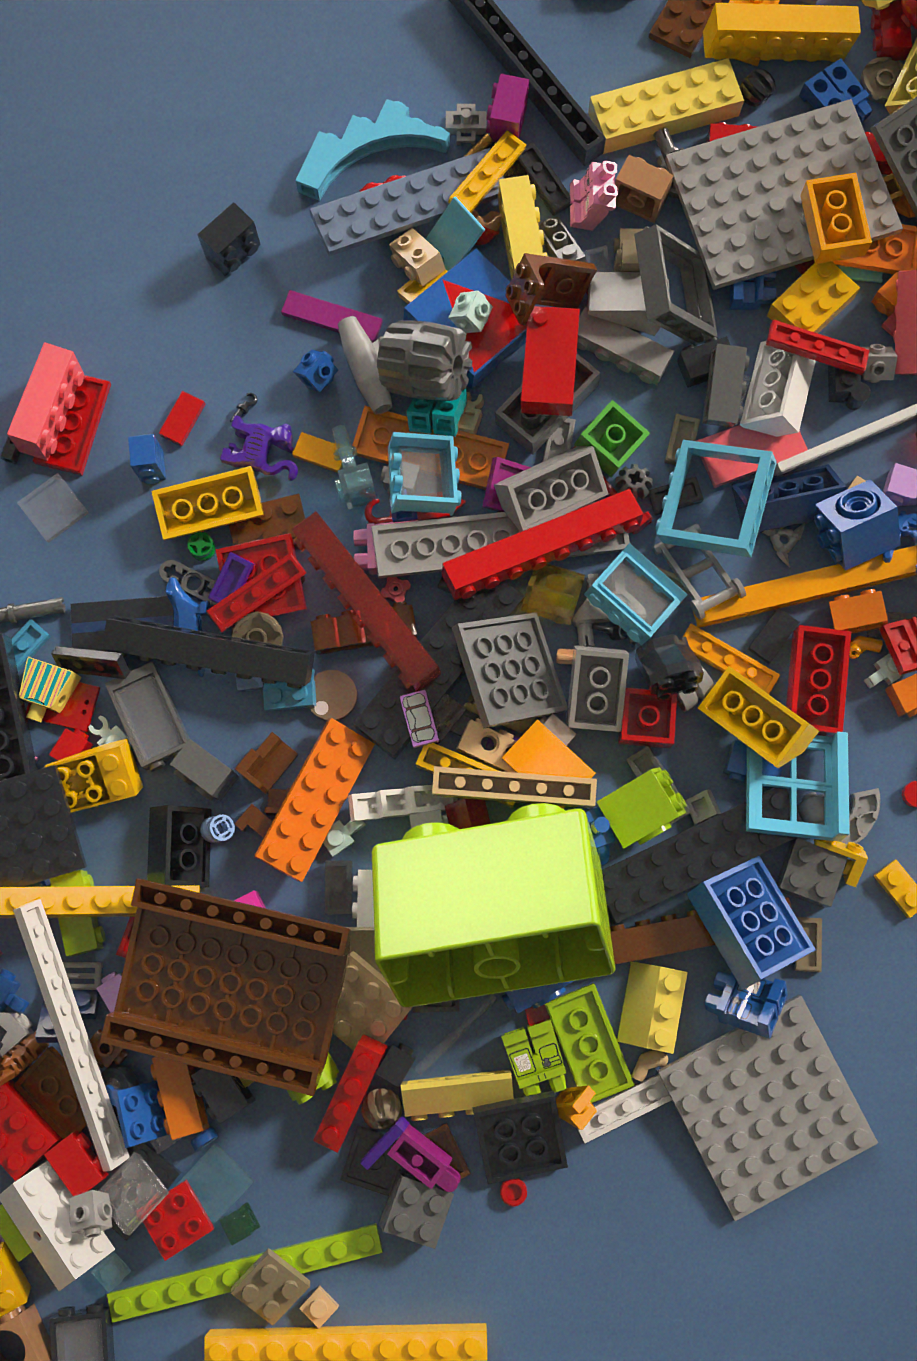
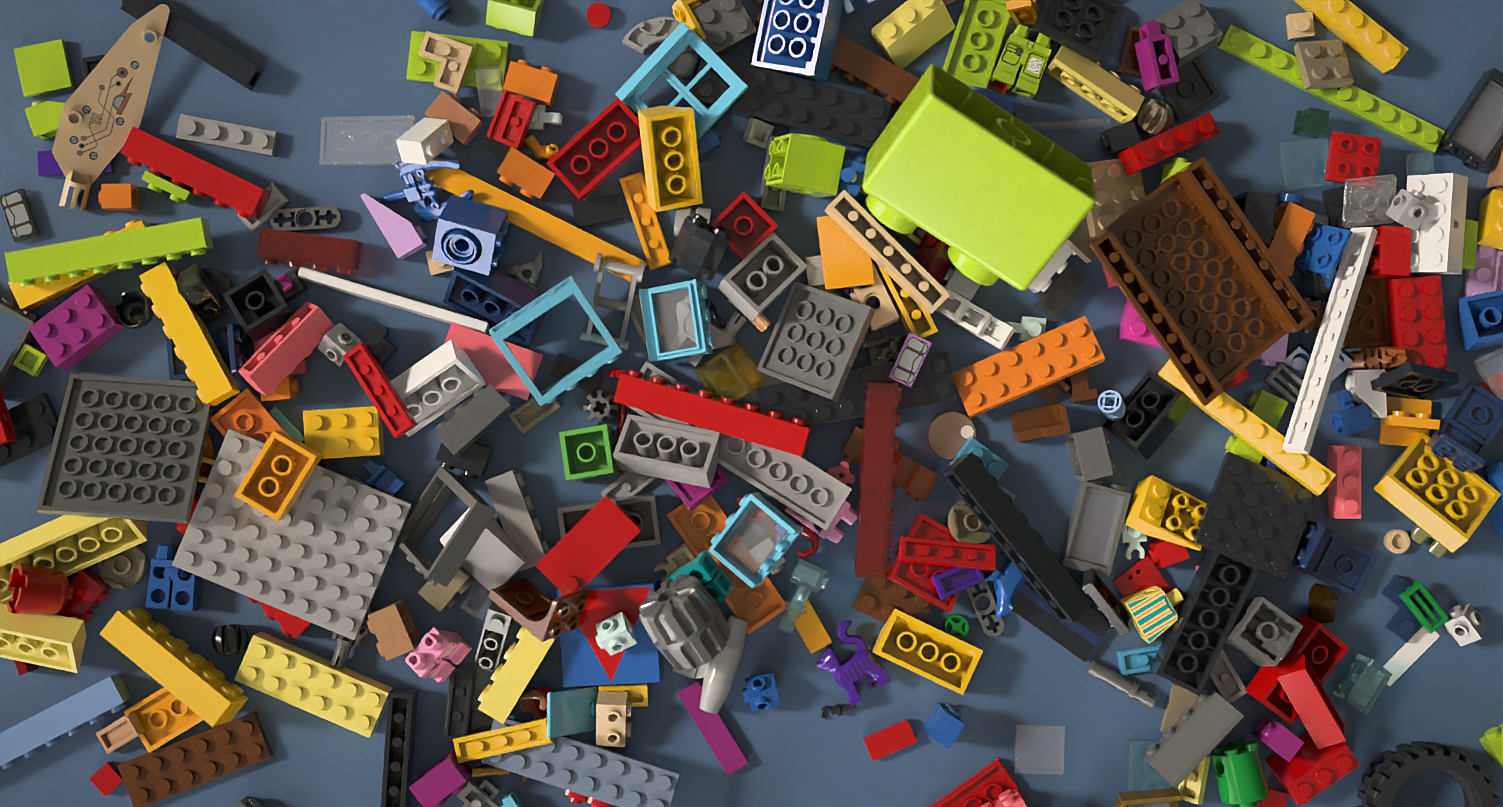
camera: 145 degrees left, 10 degrees up
(384, 1143) = (1173, 91): dark purple tile -> none

